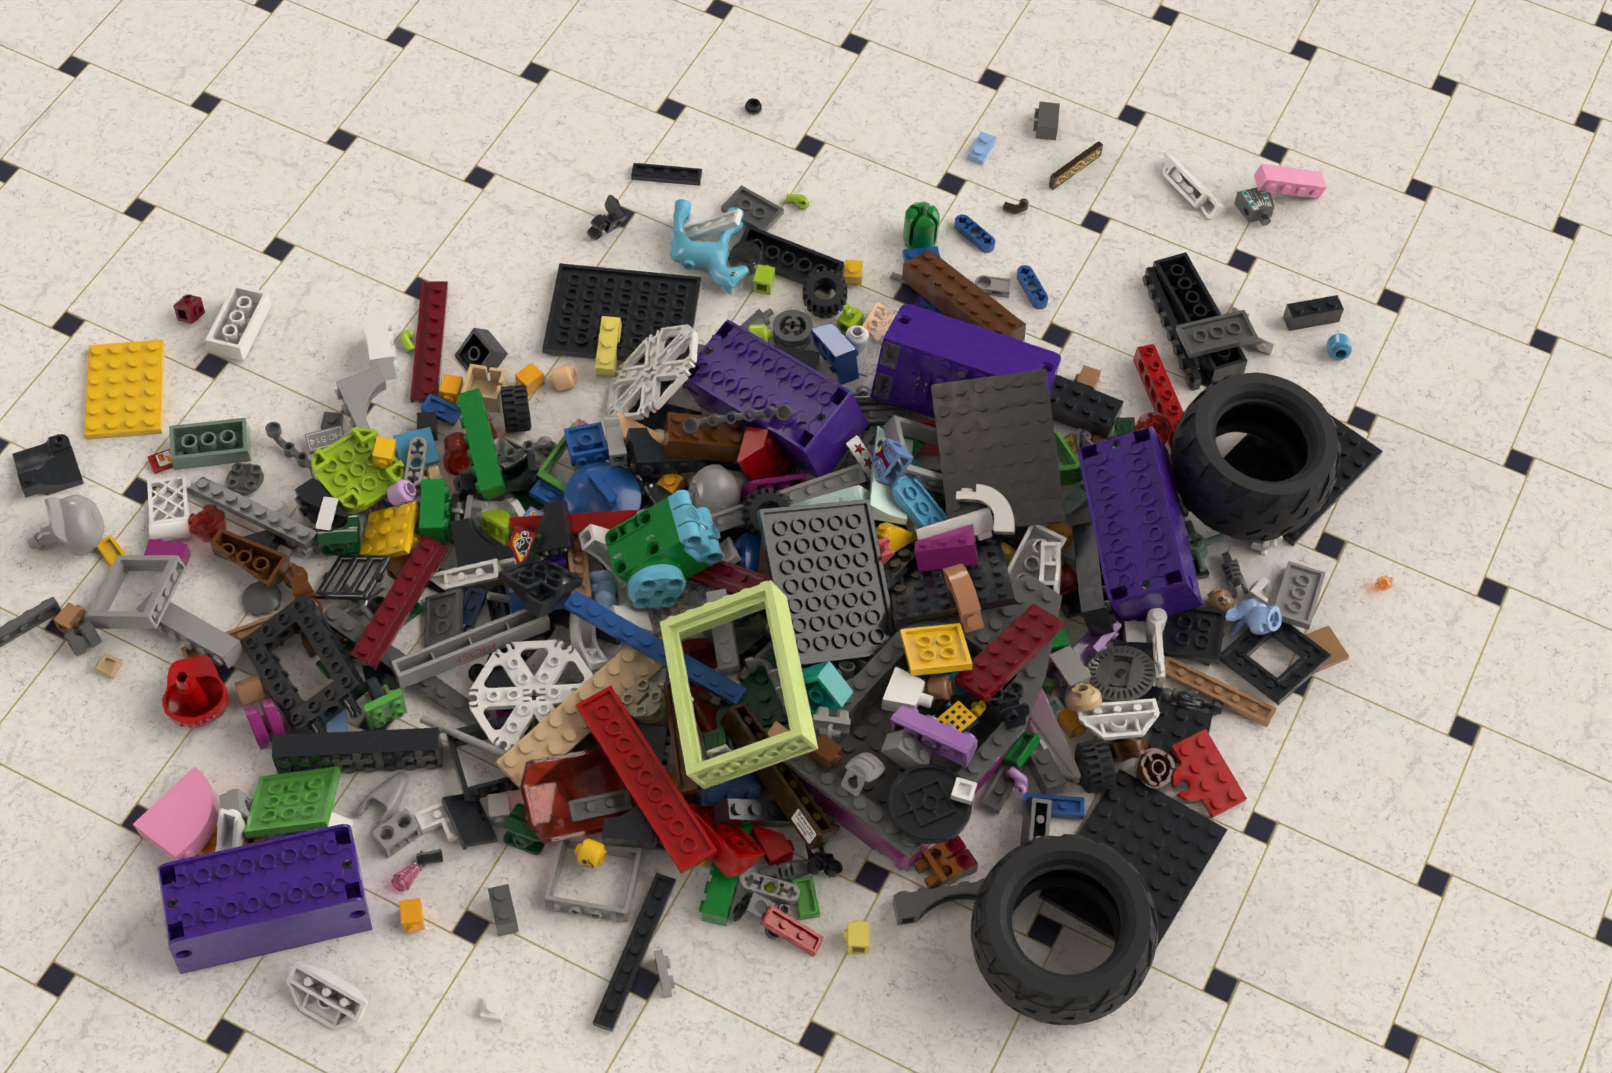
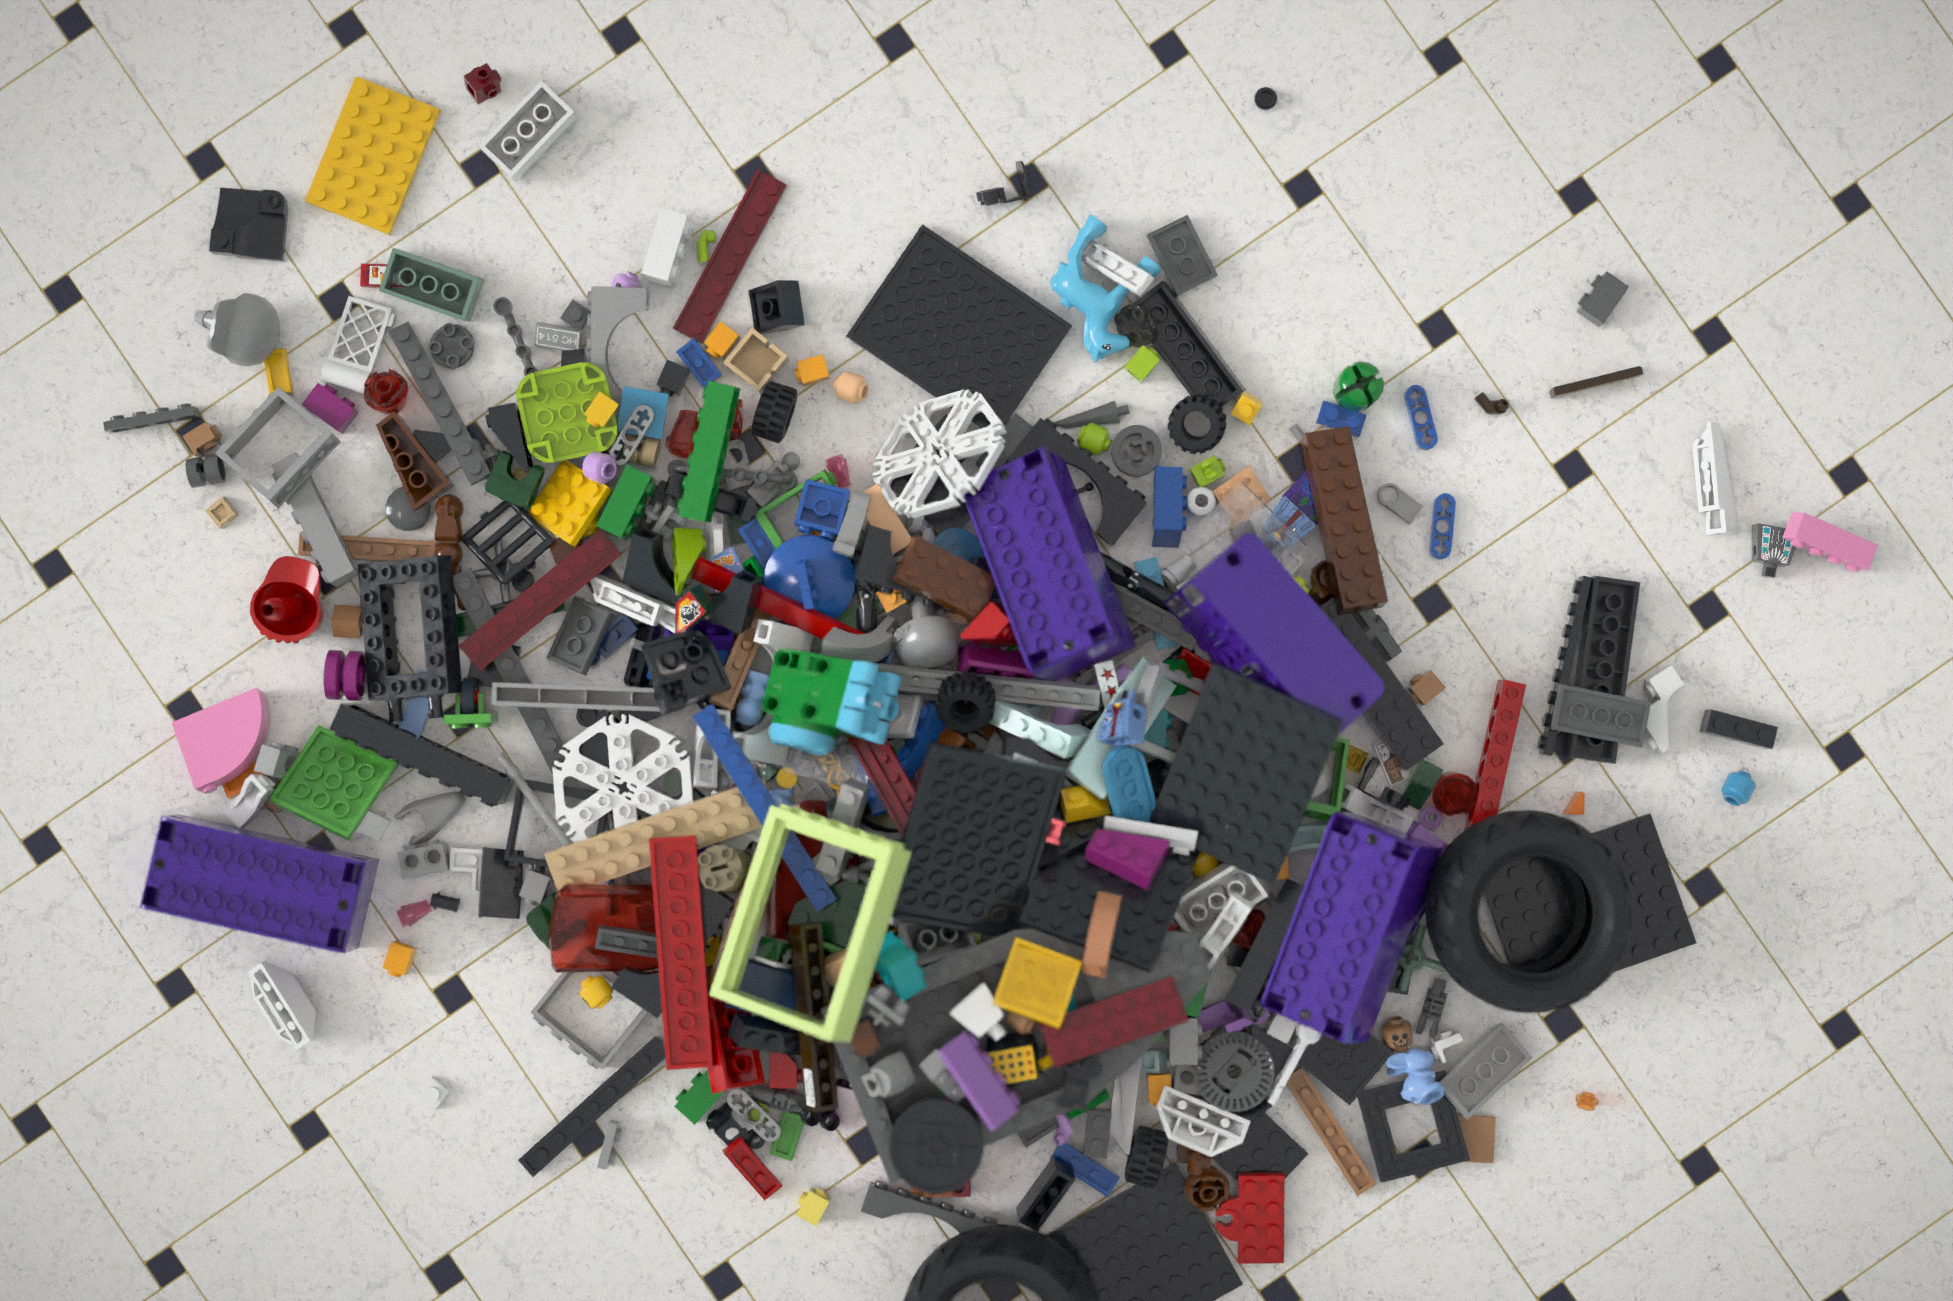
camera: 30 degrees right, 30 degrees up
(326, 513) = (508, 457): white sticker -> none
(503, 910) = (488, 999): dark grey brick -> none
(607, 346) = (916, 375): light yellow arch -> none
(666, 174) = (1112, 148): black tile -> none
(692, 424) = (1026, 627): dark grey bar -> none
(798, 199) = (1245, 267): lime arm -> none
(963, 790) = (972, 1157): white plate -> none
(981, 148) = (1502, 296): light blue plate -> none
(1003, 514) = (1207, 831): white arch -> none
(1083, 698) = (1177, 1091): tan piece -> none
(1169, 695) = (1283, 1111): dark grey bar -> none
(1185, 699) = (1288, 1126): black piece -> none

